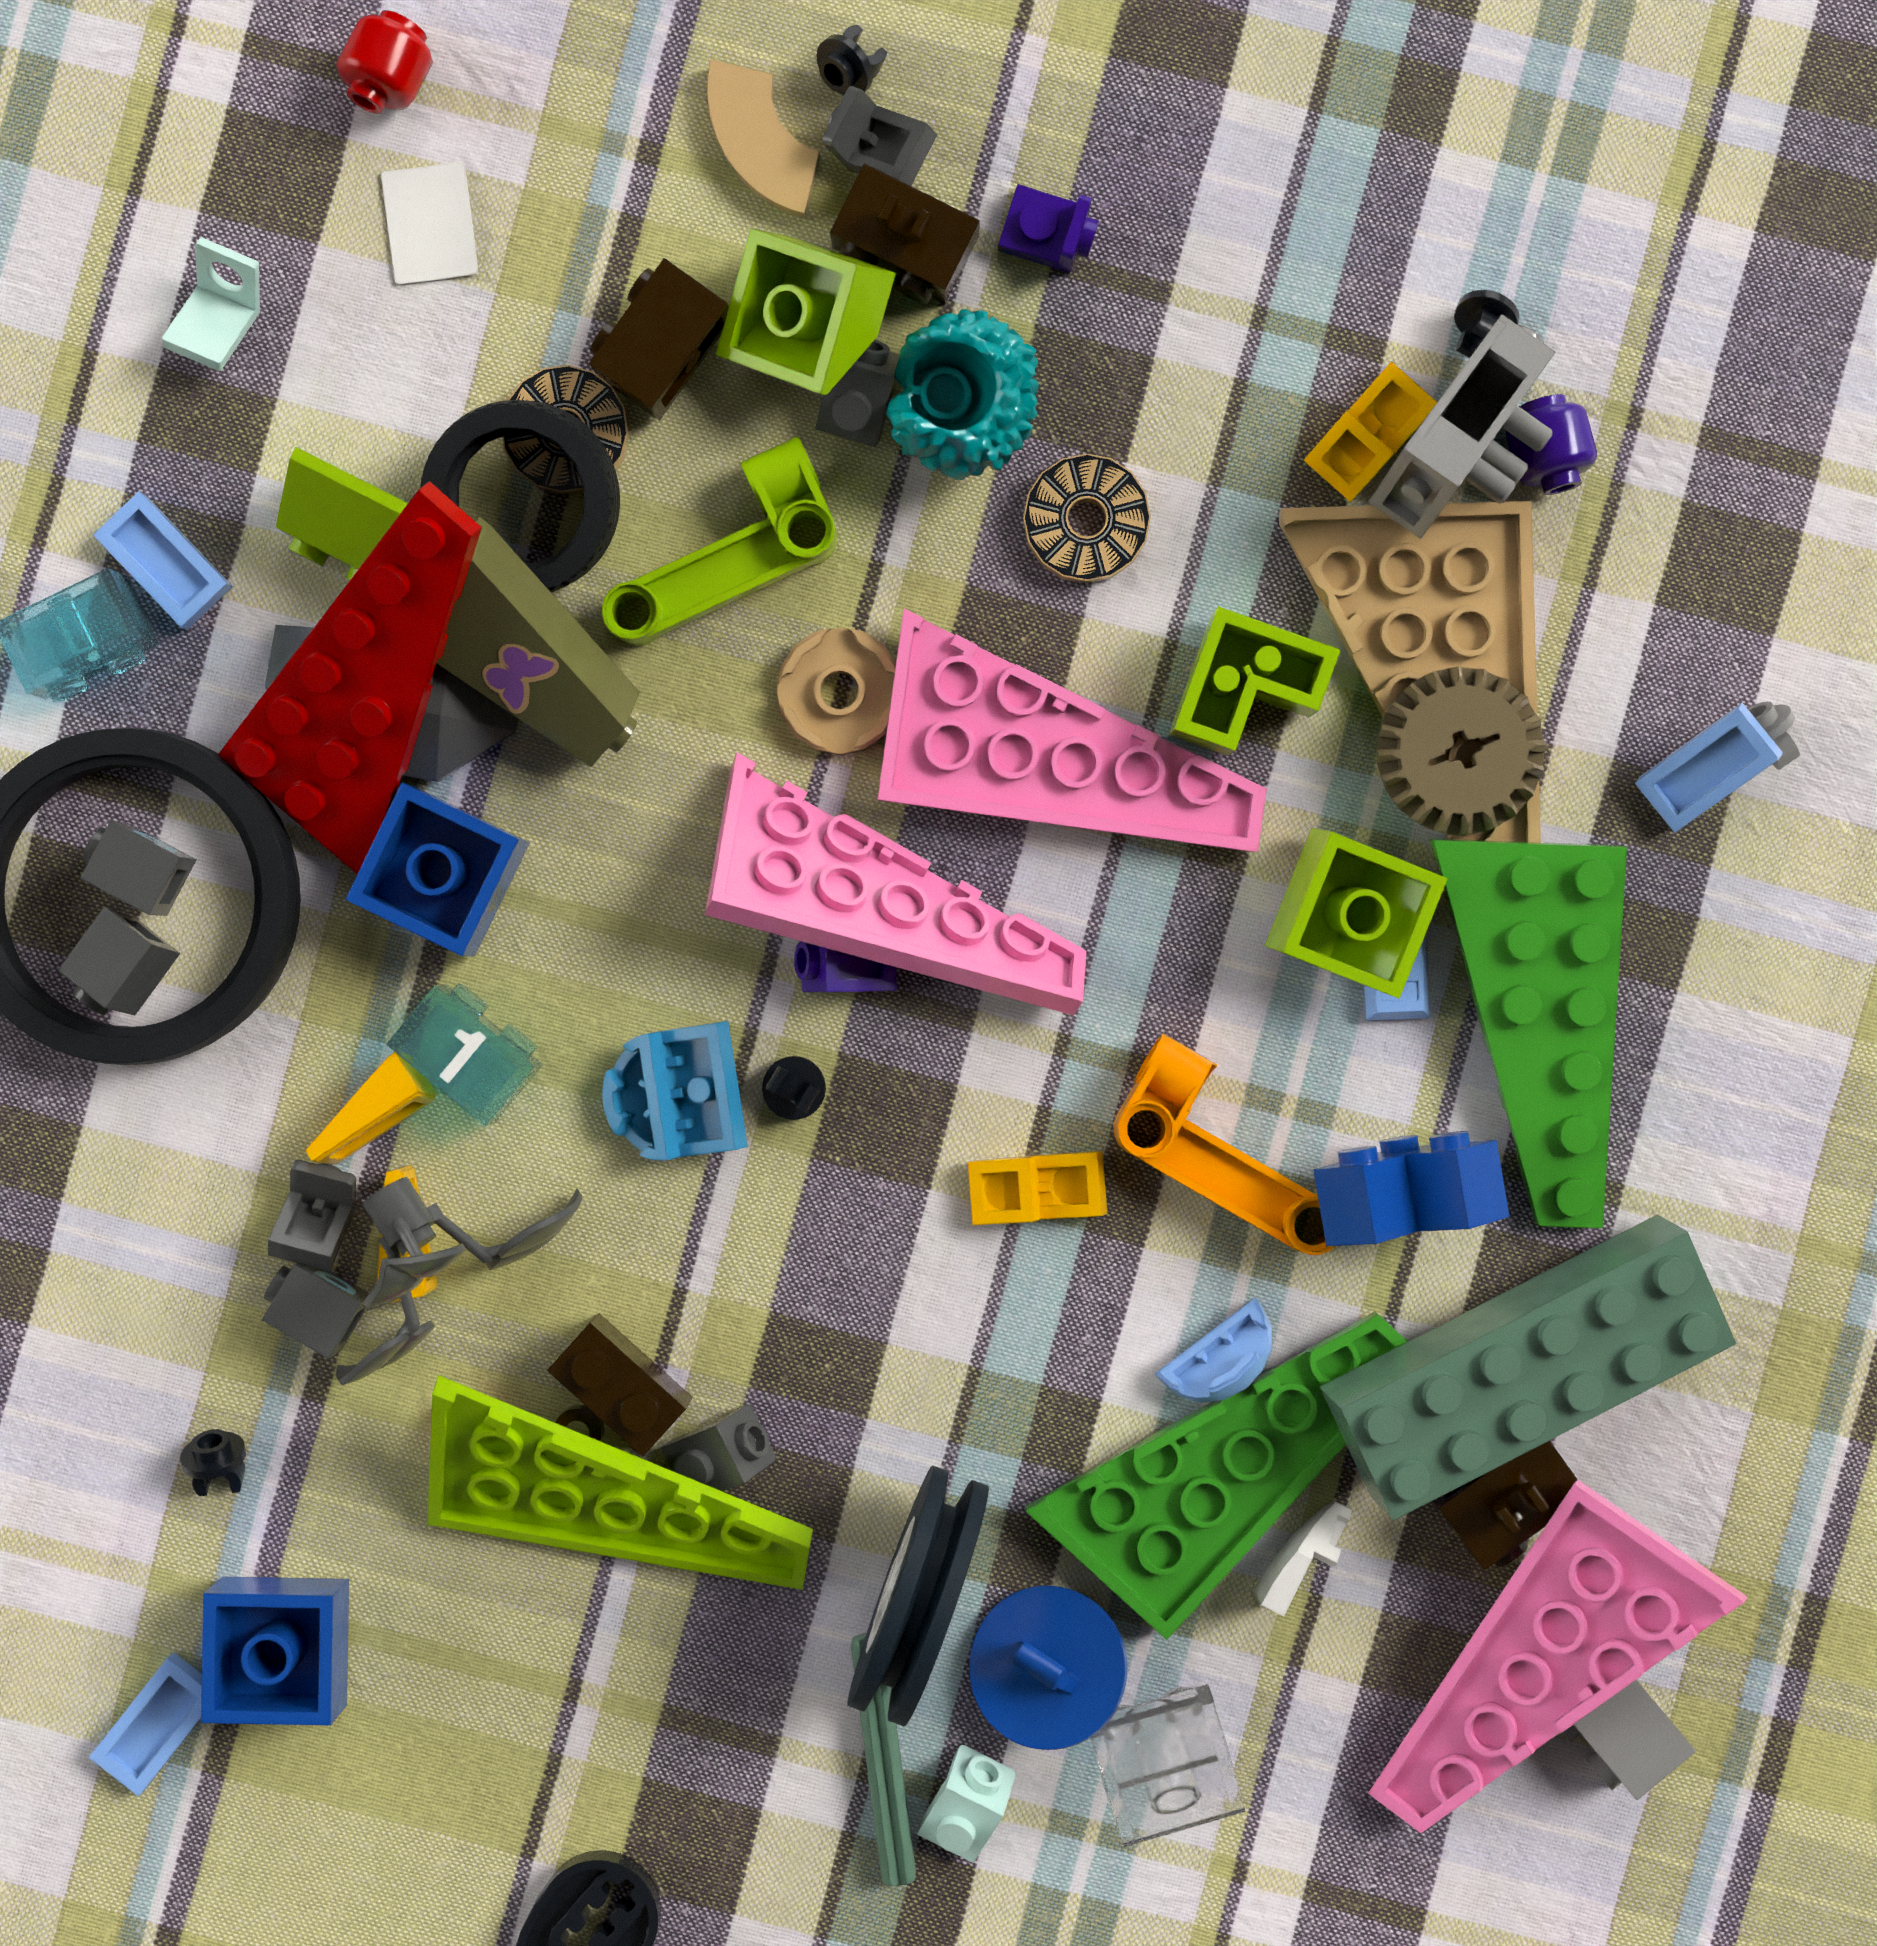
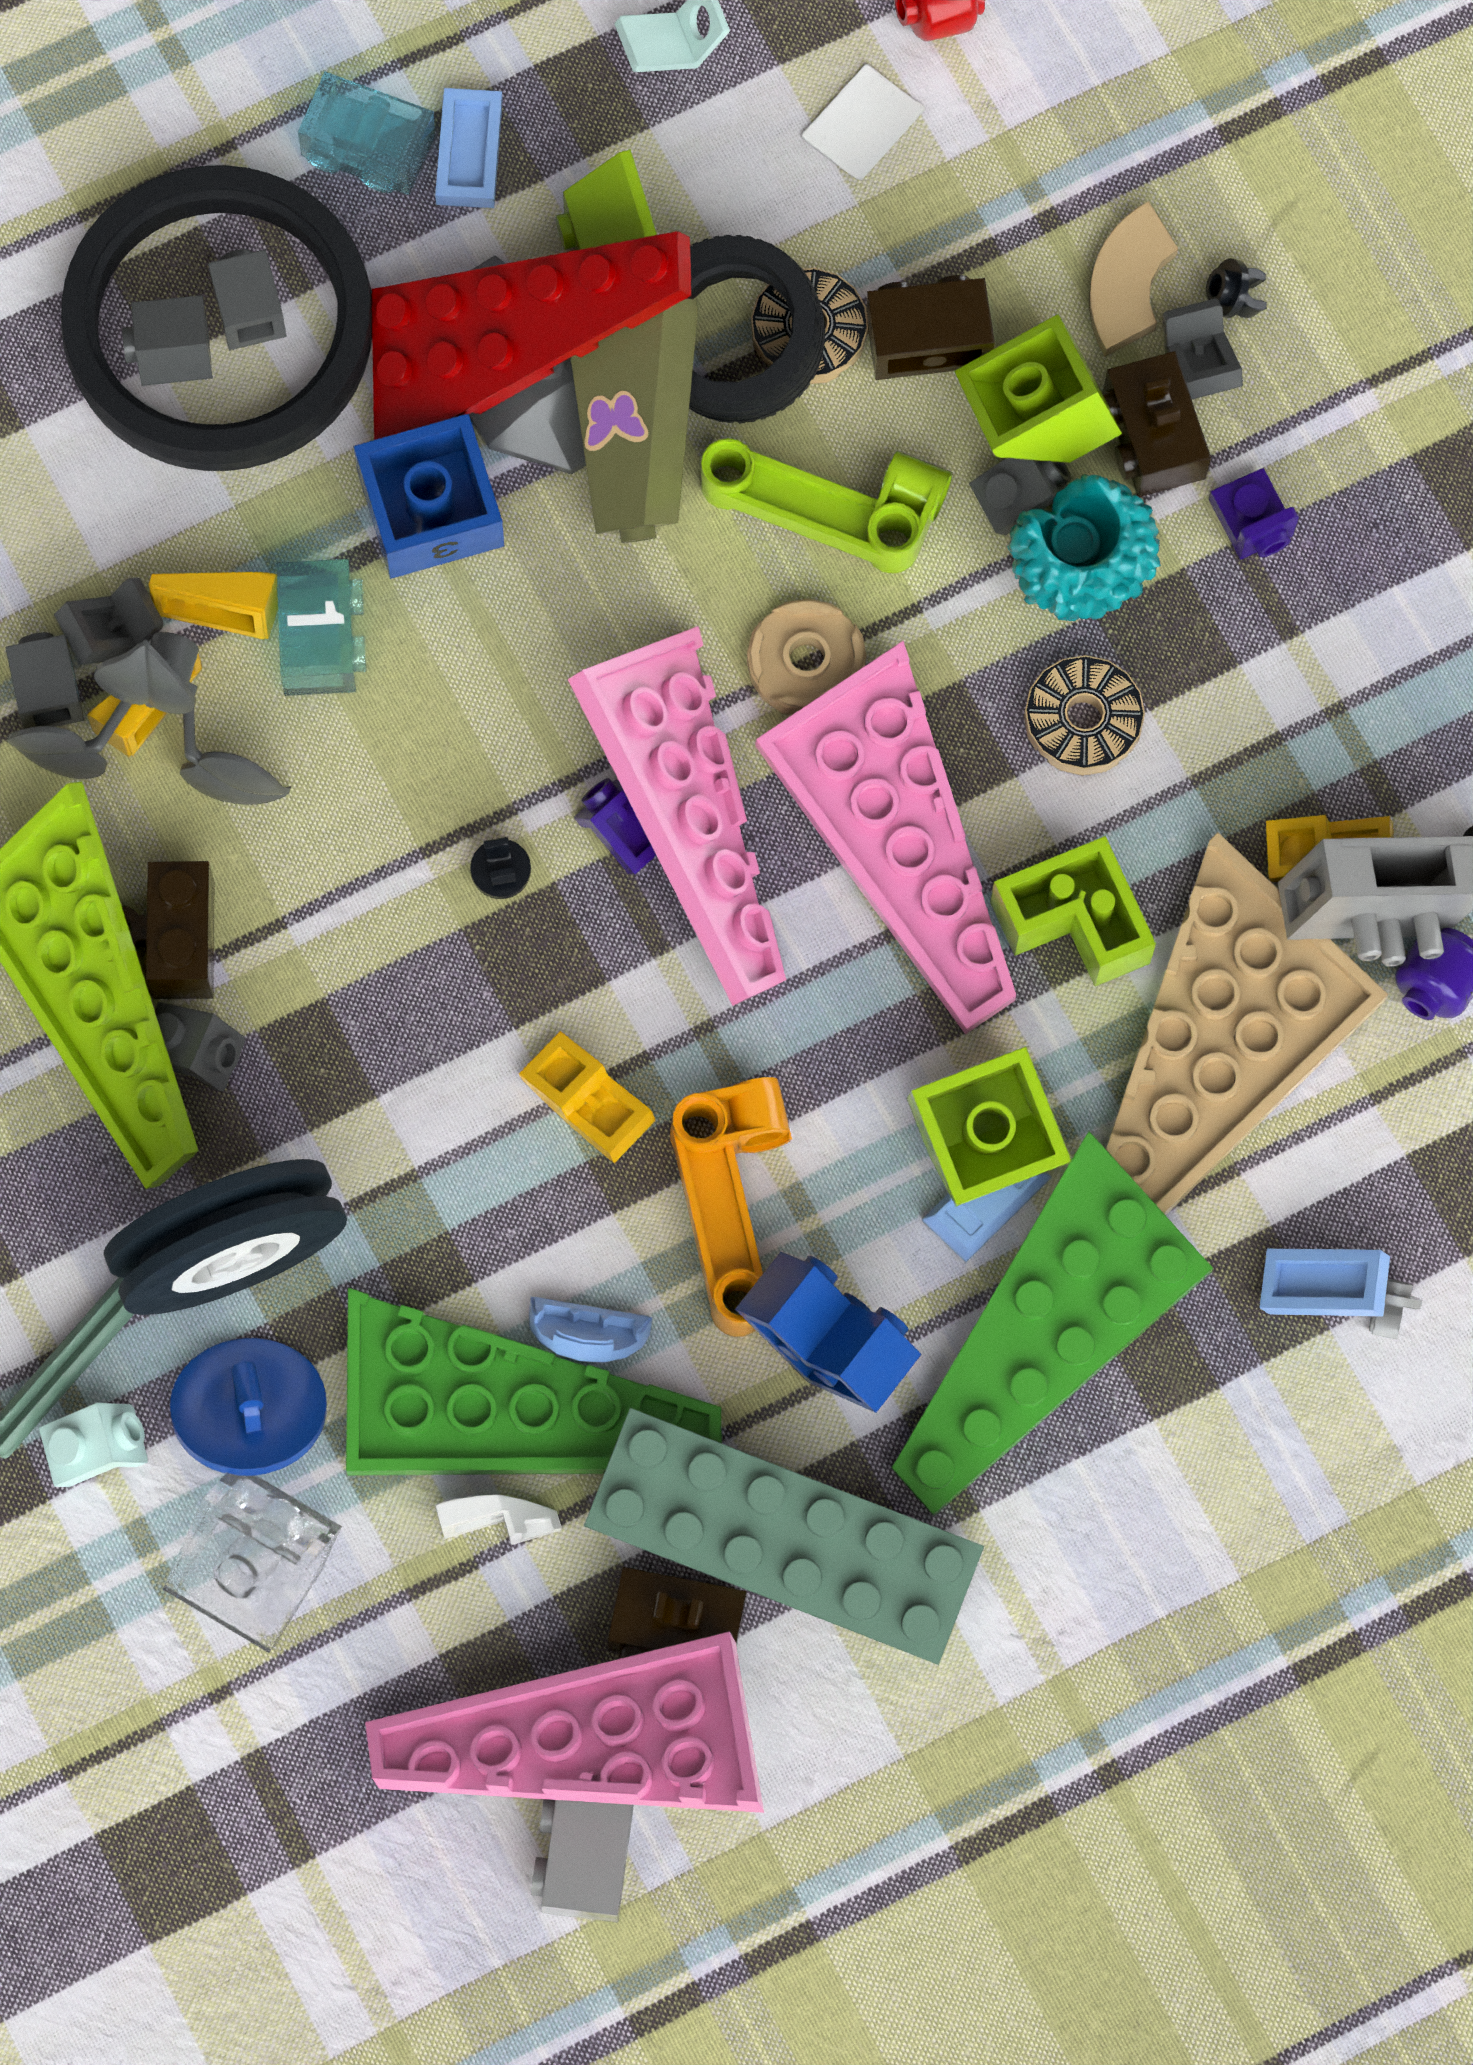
camera: 45 degrees right, 15 degrees down
(677, 1093) = (423, 790): dark azure slope -> none
(1422, 727) = (1187, 1136): dark tan gear -> none

